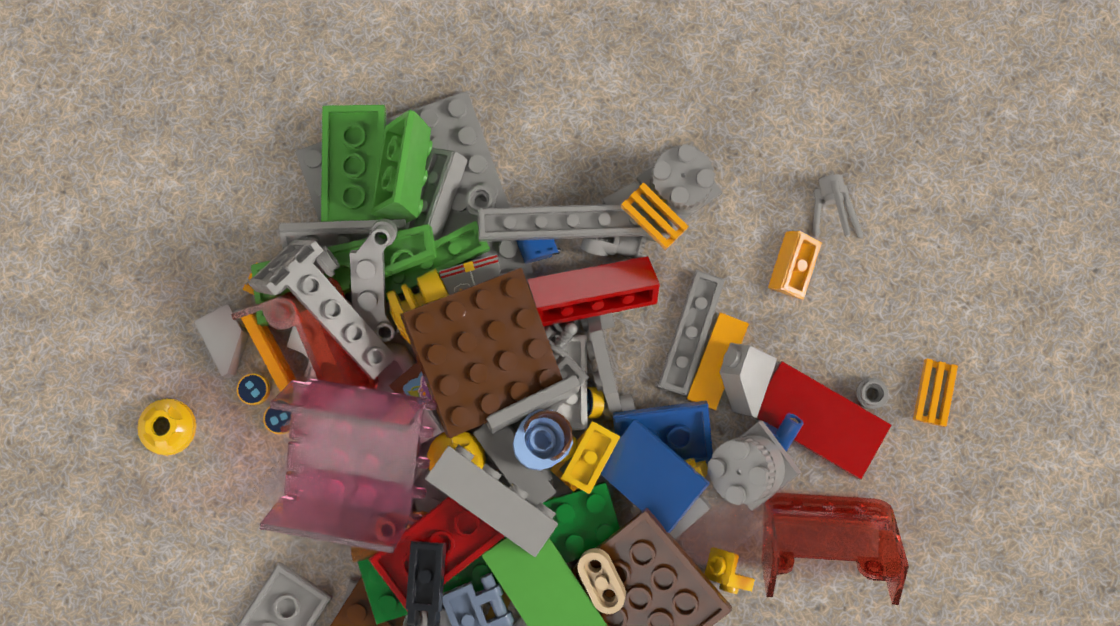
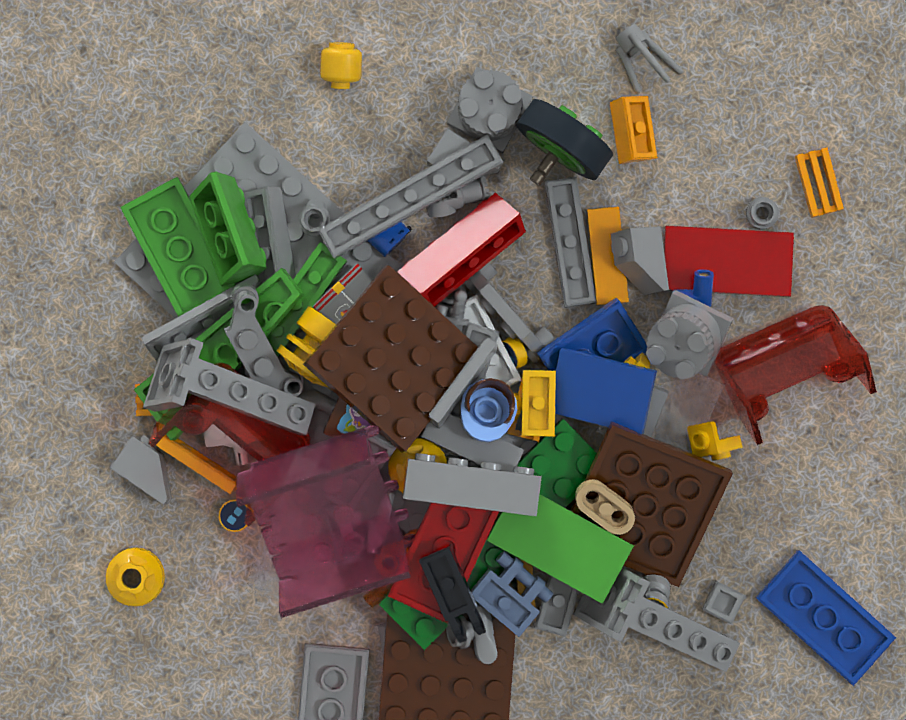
camera: 25 degrees left, 5 degrees up
(253, 389) = (196, 502): dark blue tile -> none
(326, 262) = (209, 351): light grey plate -> none
(572, 83) = (341, 64): none -> yellow head
(663, 208) = (486, 141): light orange tile -> none
(729, 240) = (563, 141): none -> black wheel

